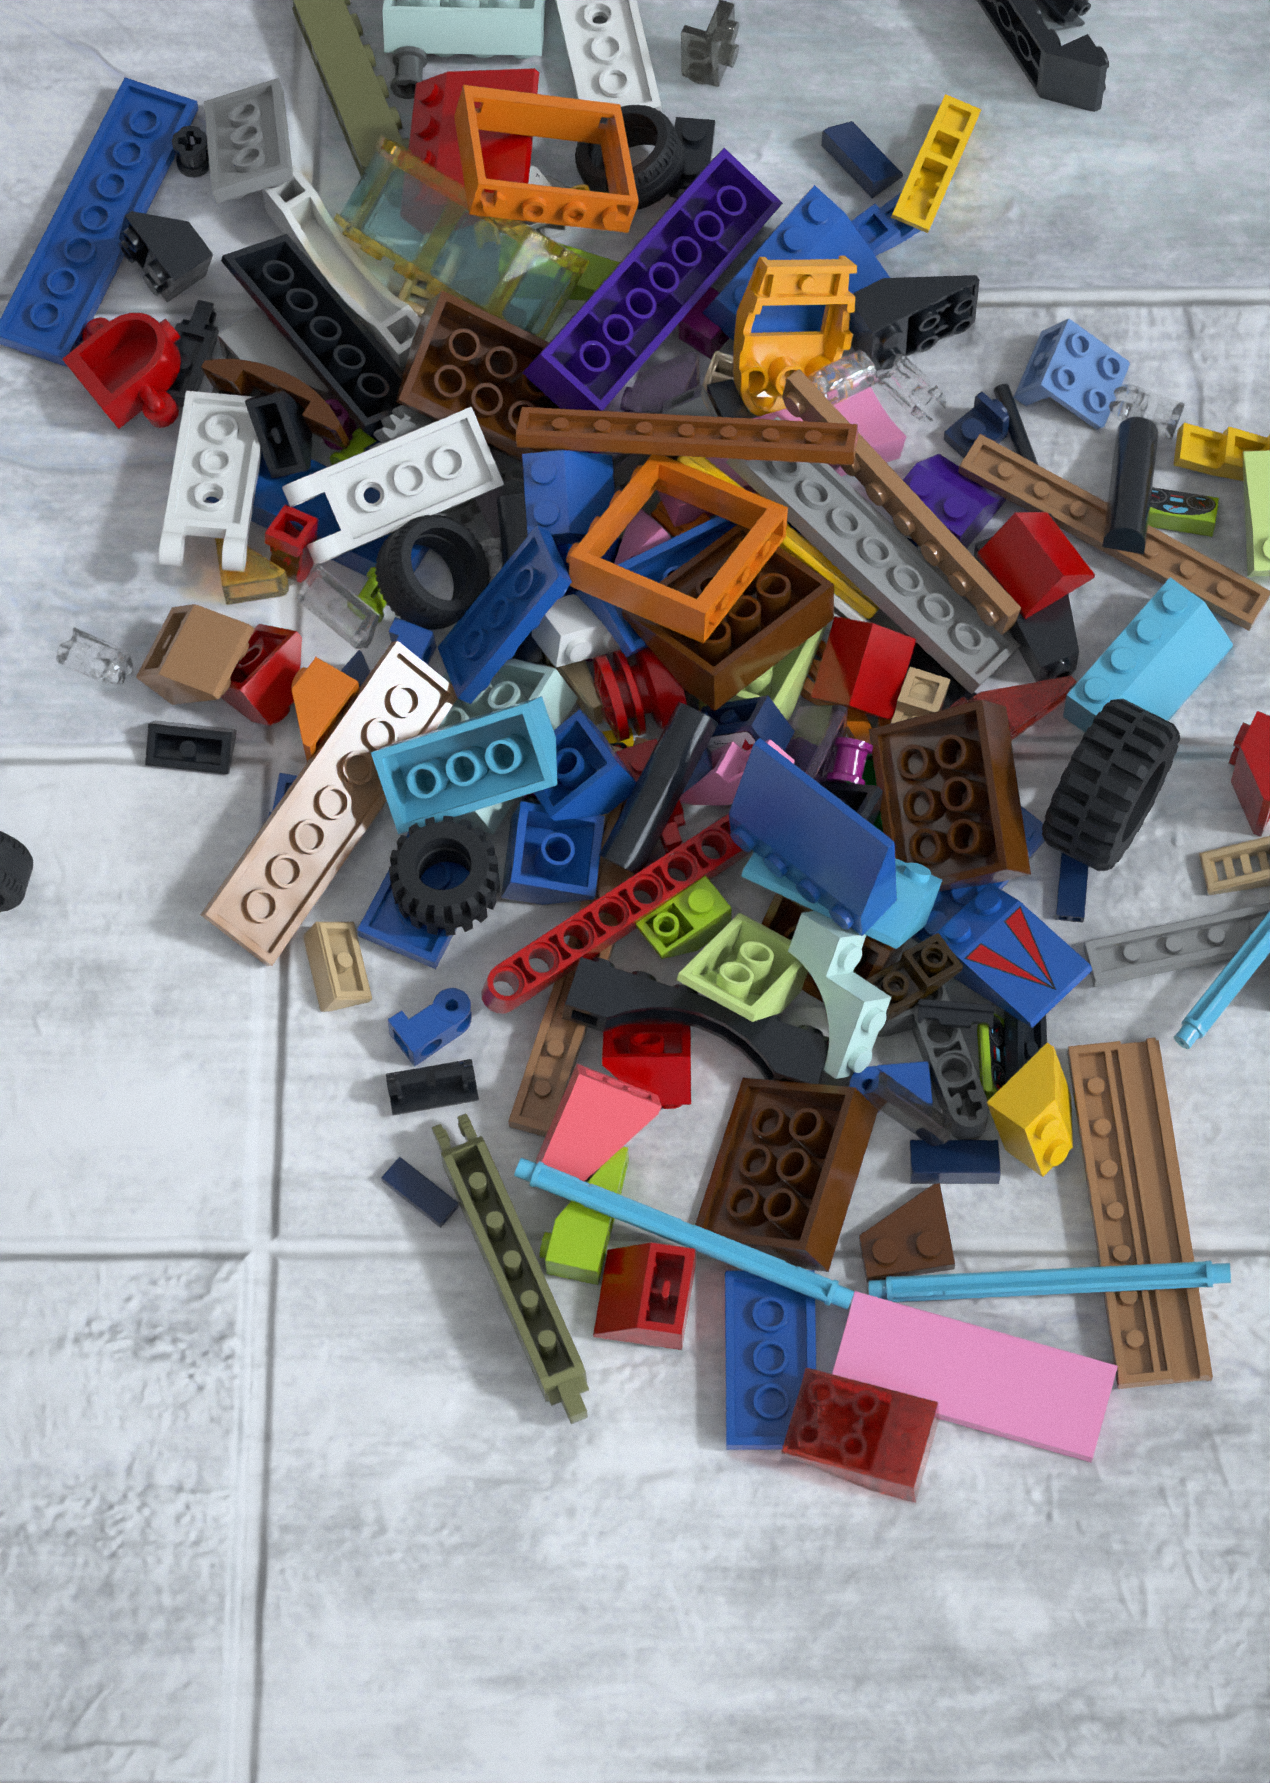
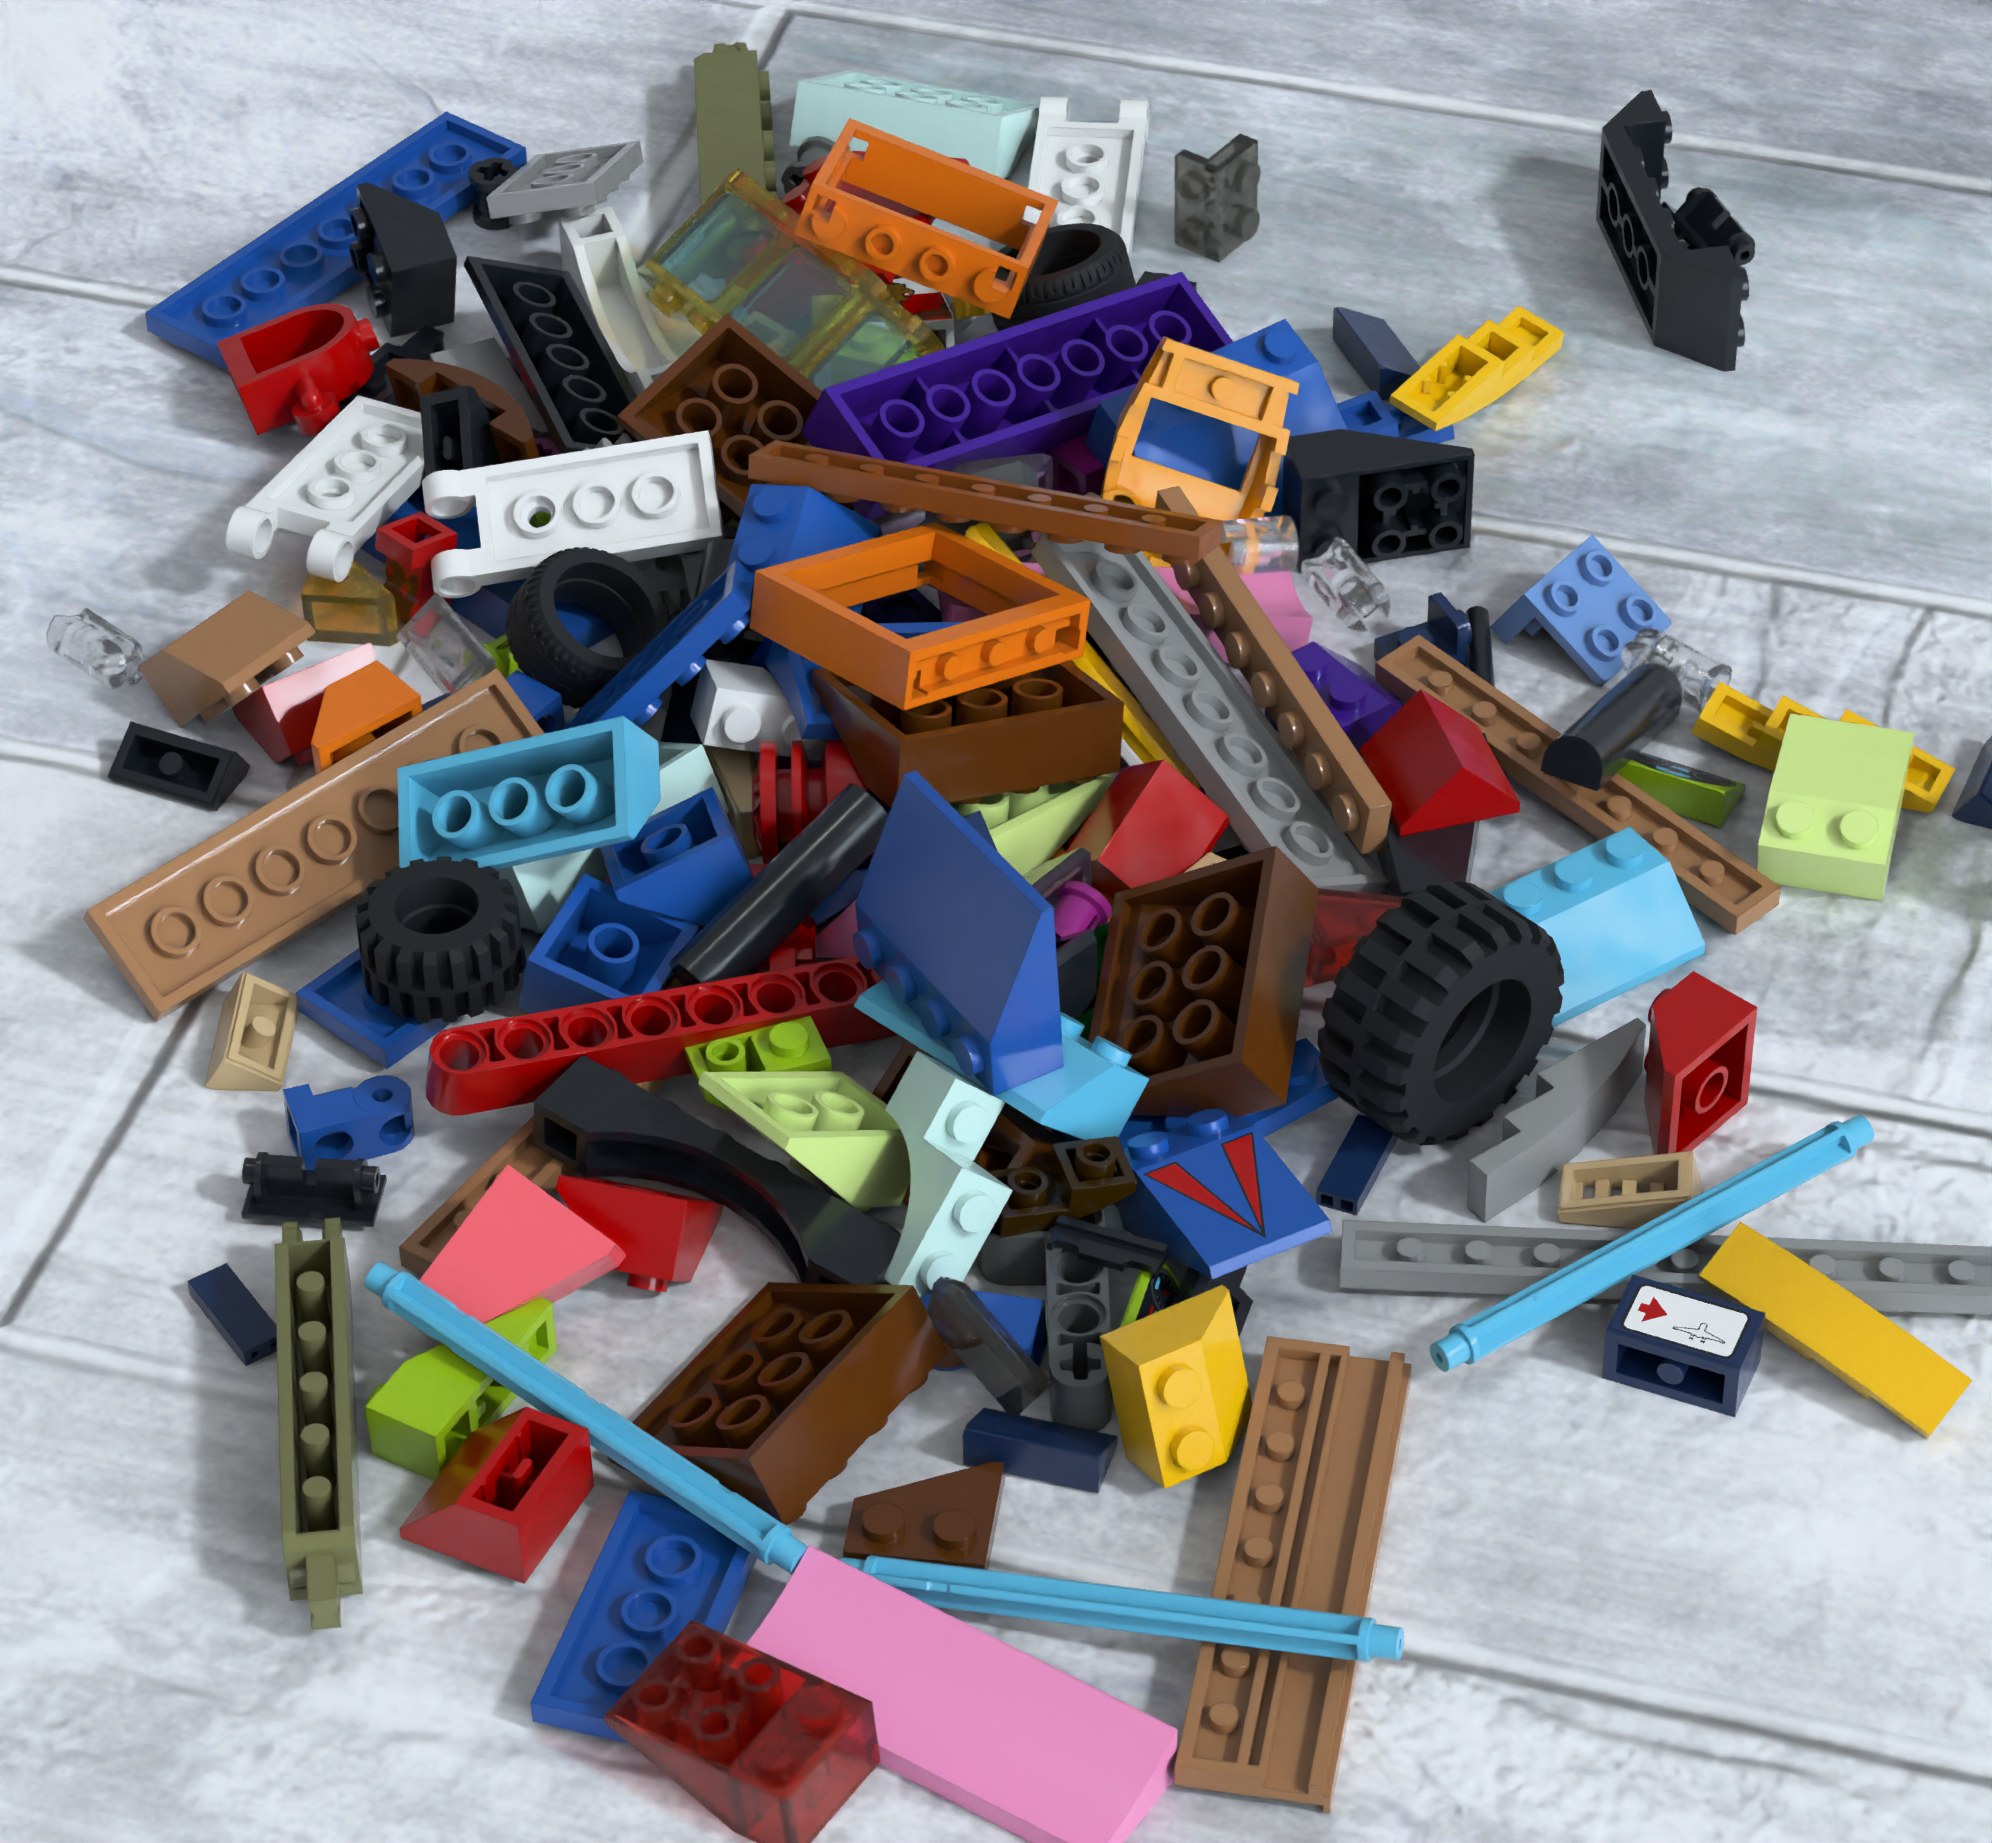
camera: 15 degrees right, 25 degrees down
(1191, 812) = (1568, 1111): none -> light grey slope

